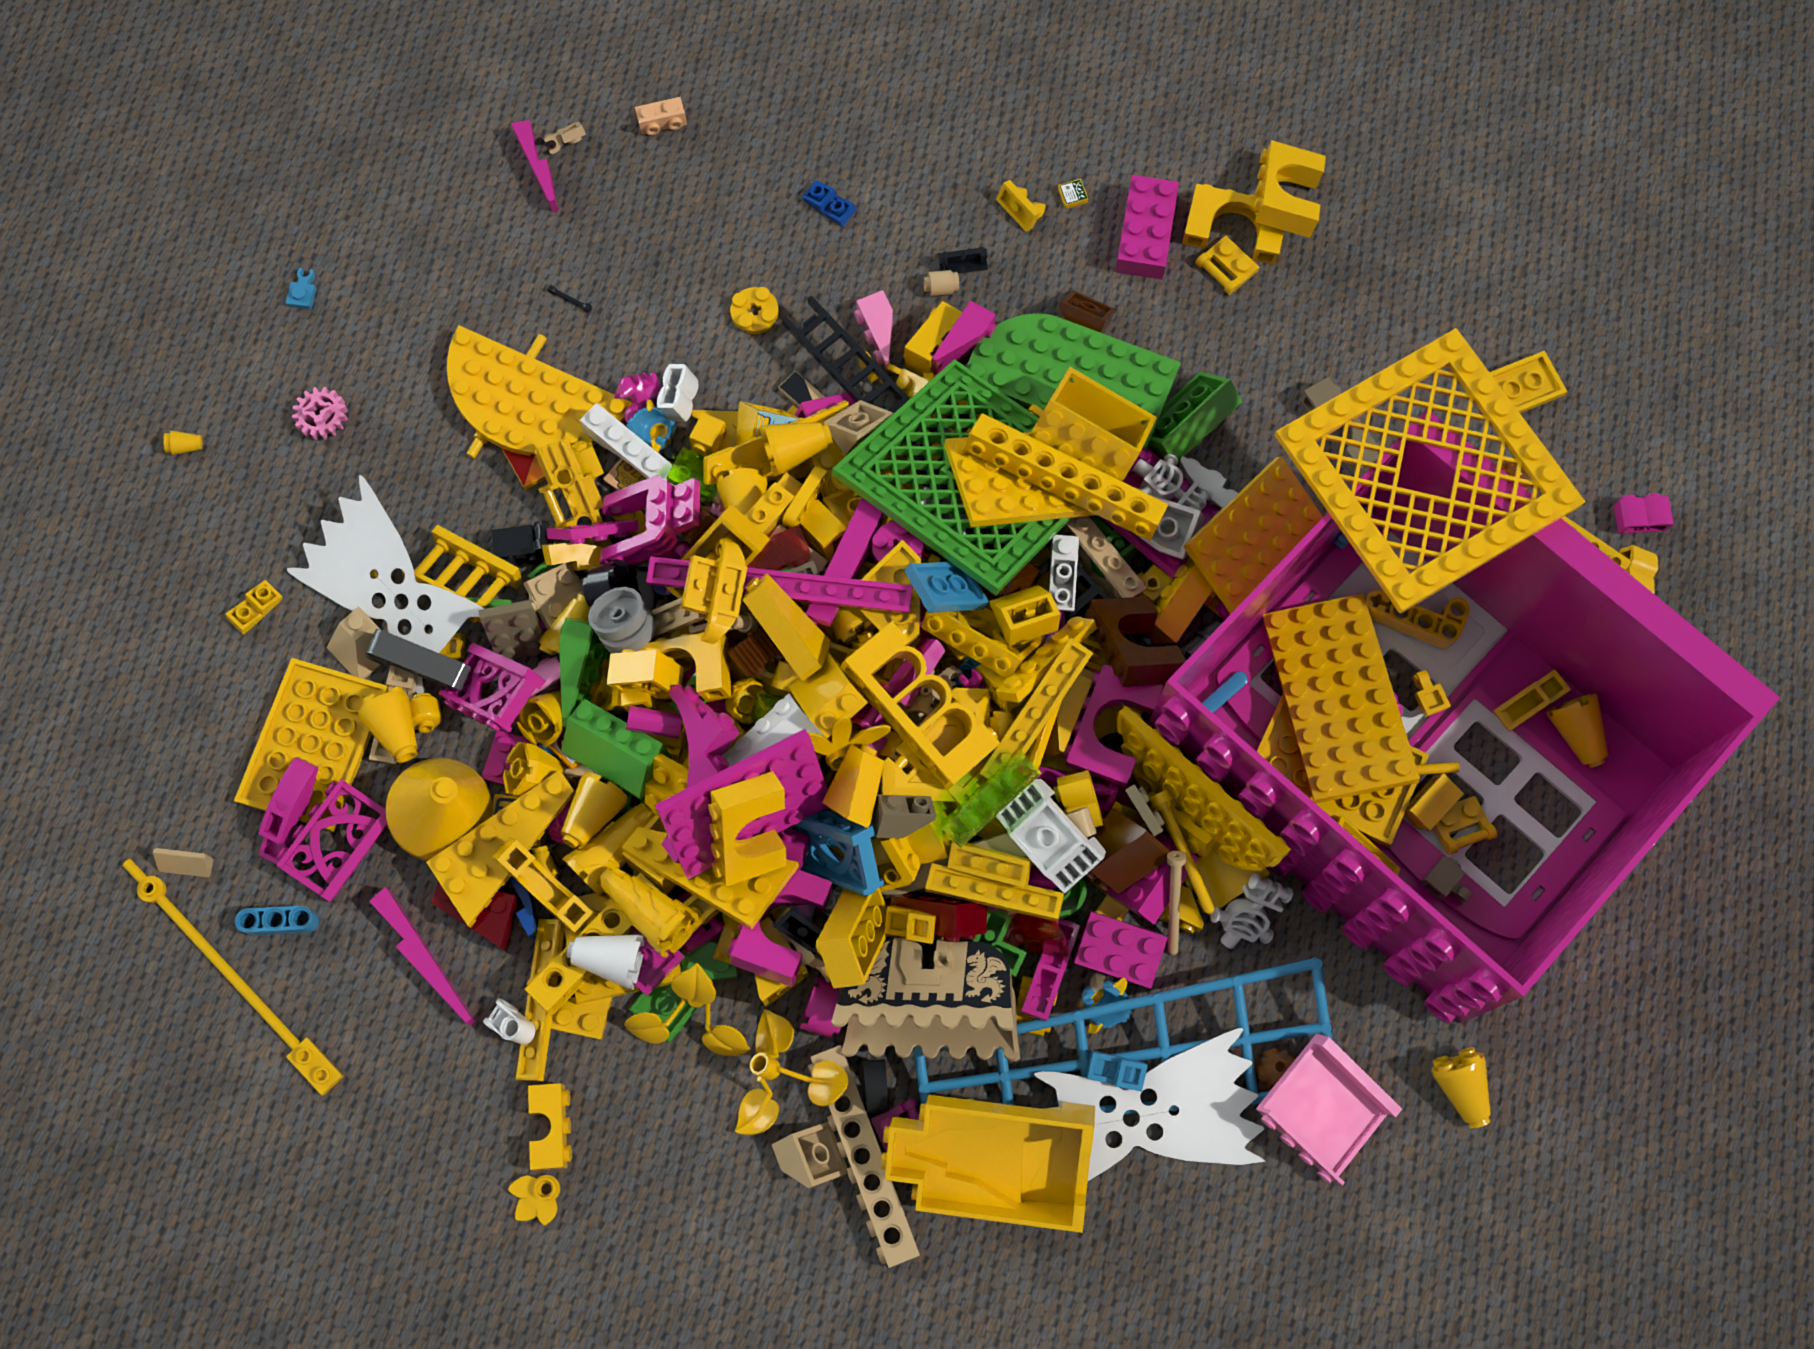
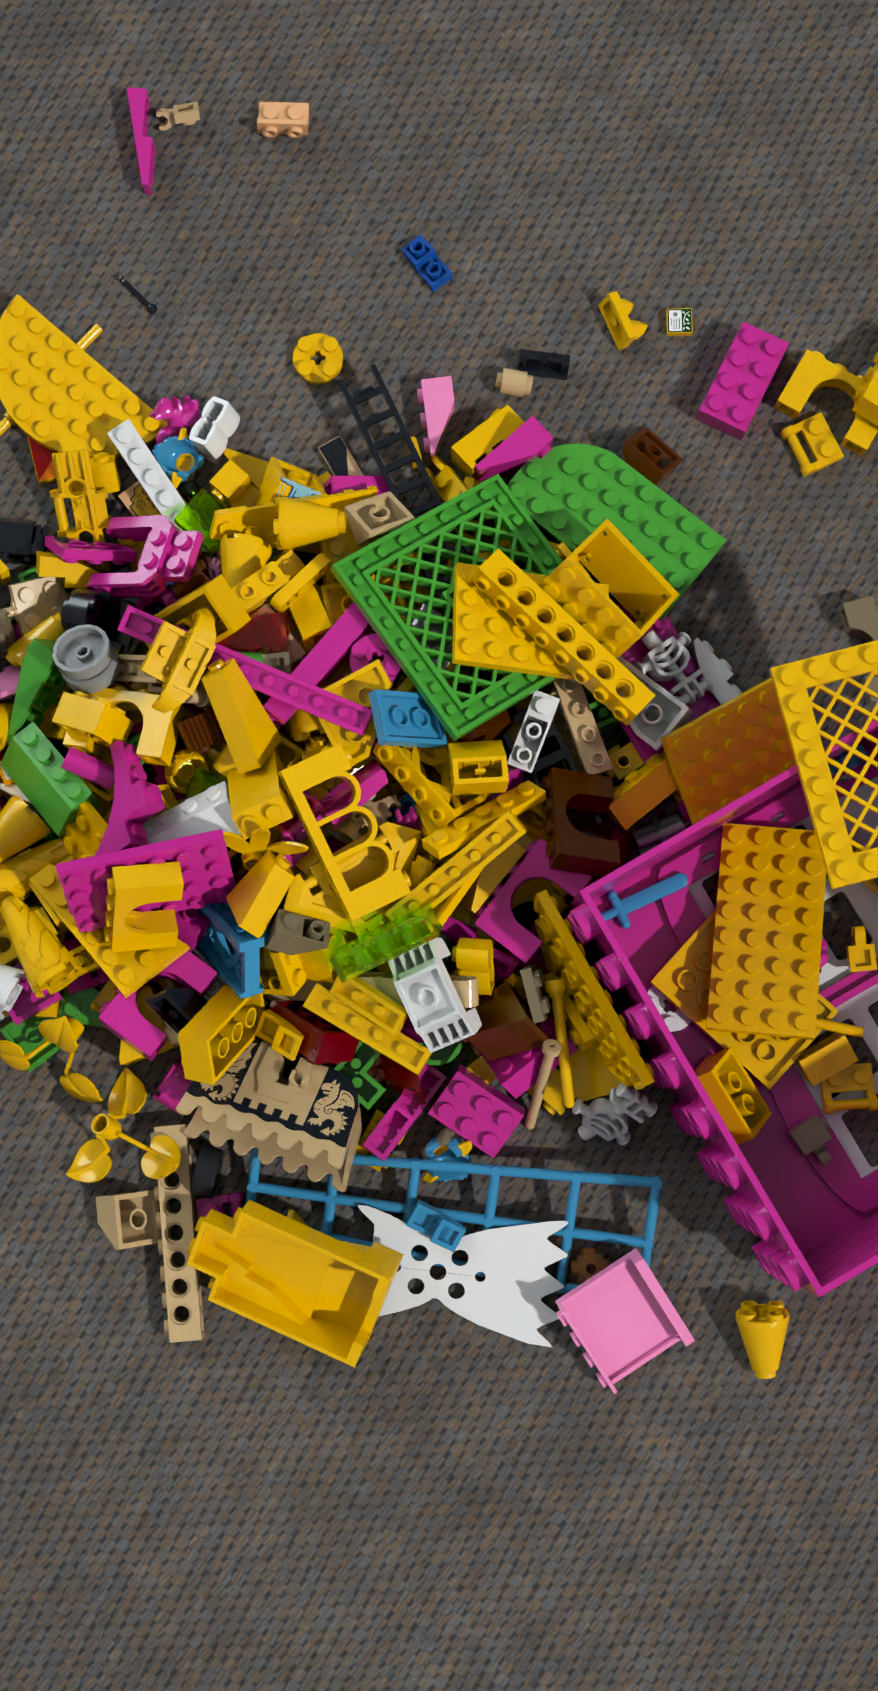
camera: 20 degrees right, 10 degrees up
(1193, 414) = (723, 595): bright green slope -> none

